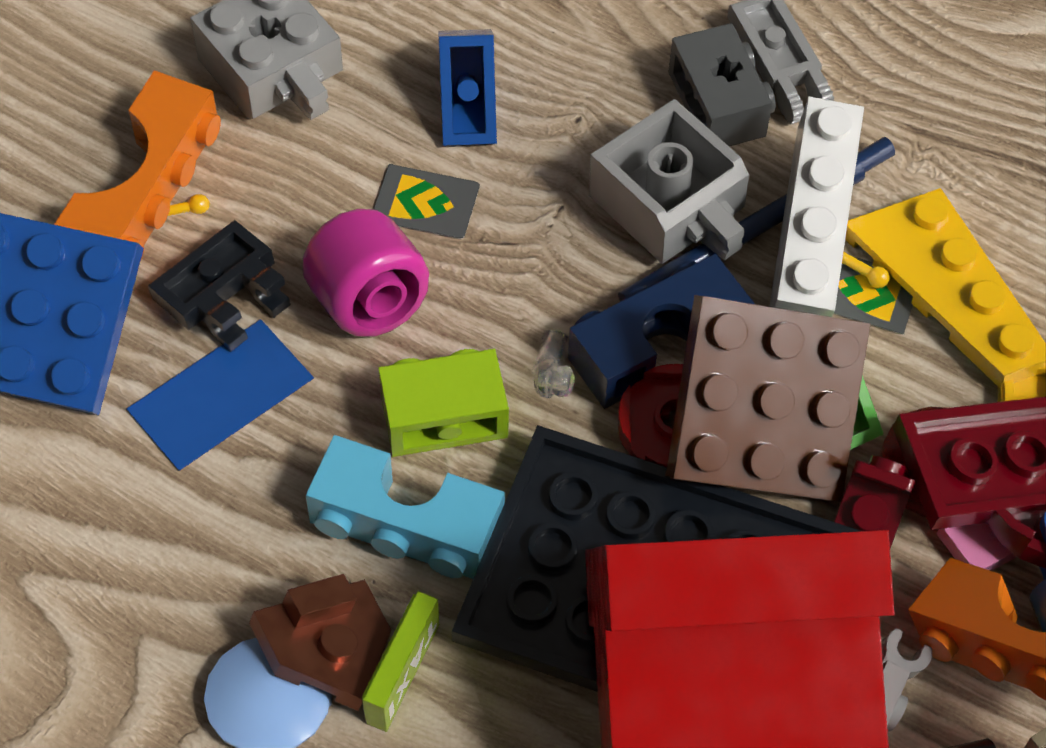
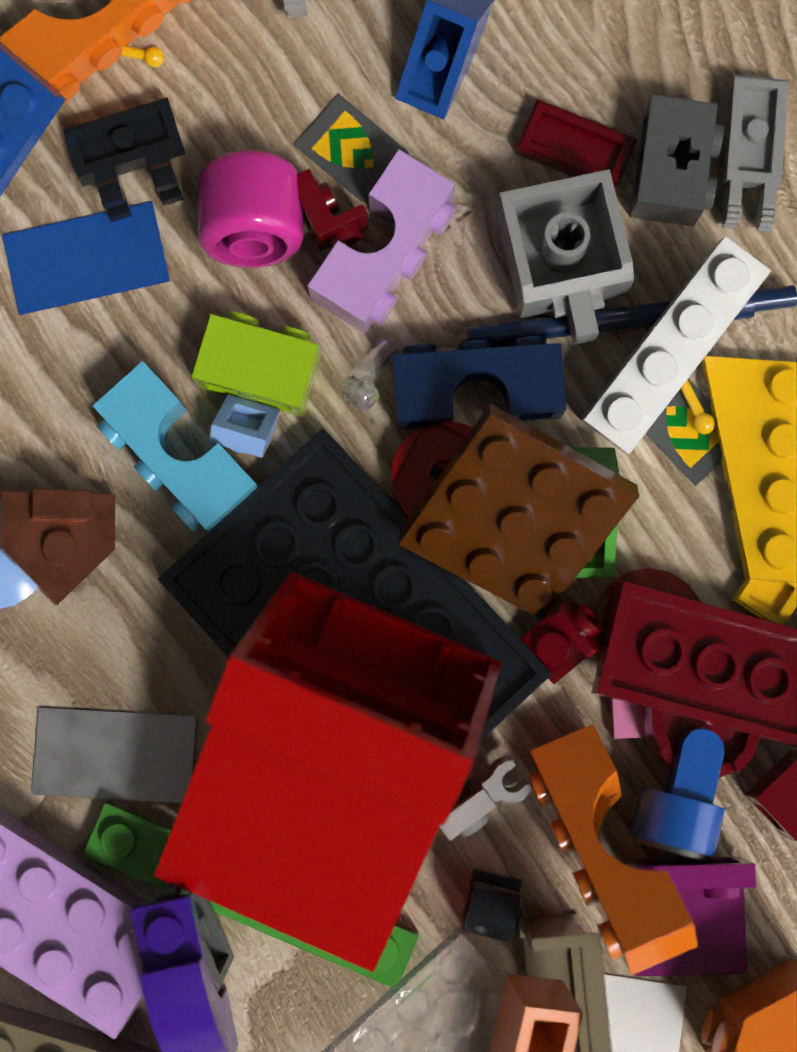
camera: 30 degrees right, 25 degrees up
(400, 661) = (105, 583): lime tile -> none
(444, 259) = (318, 214): none -> dark red bracket
(461, 457) = (244, 426): none -> light blue plate
(499, 292) = (362, 284): none -> lavender arch
(608, 113) = (573, 143): none -> dark red tile

